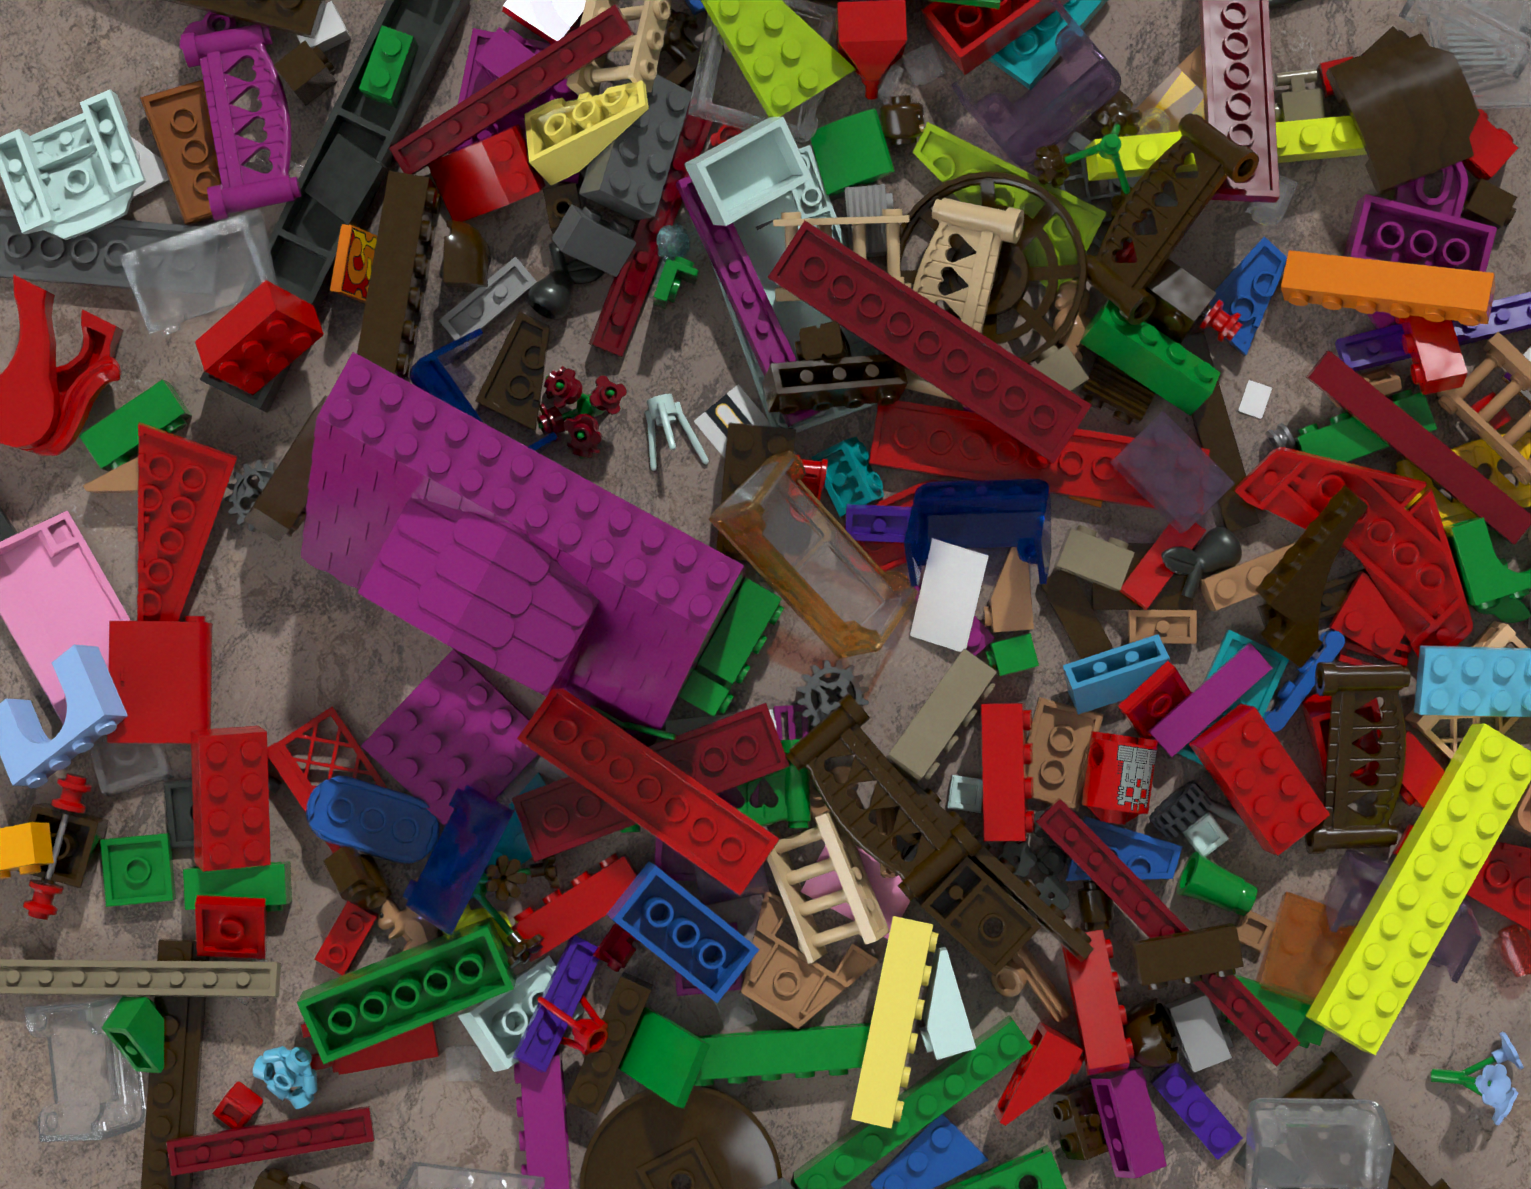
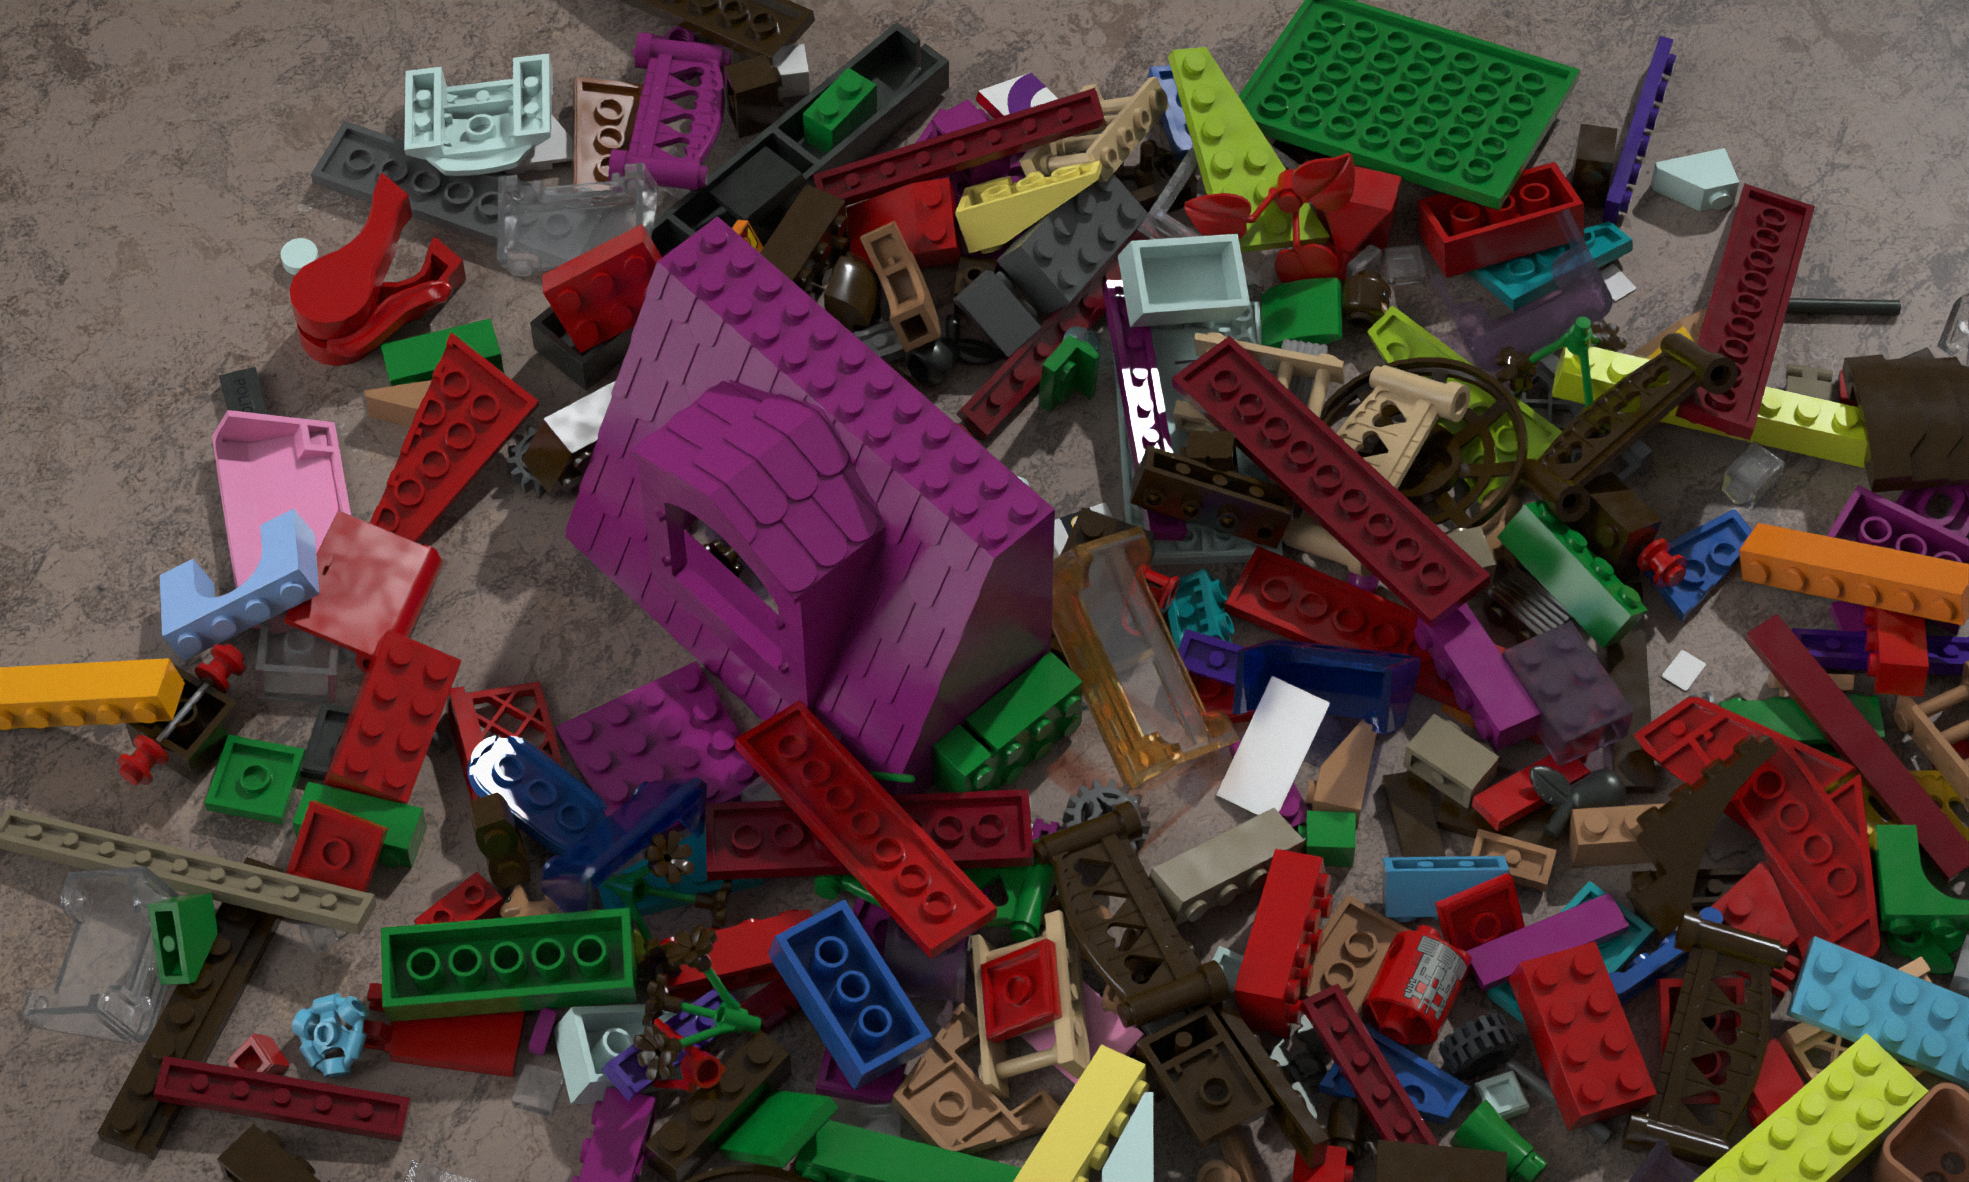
camera: 20 degrees right, 30 degrees down
(450, 1025) = (542, 1031): none -> magenta tile
(518, 255) = (905, 288): none -> medium nougat arch
(558, 974) = (657, 1048): none -> dark brown plant
(815, 54) = (1322, 181): none -> red plant
(815, 884) = (1020, 991): none -> red tile
(1103, 483) = (1479, 678): none -> magenta brick
(1107, 25) = (1617, 282): none -> white sticker

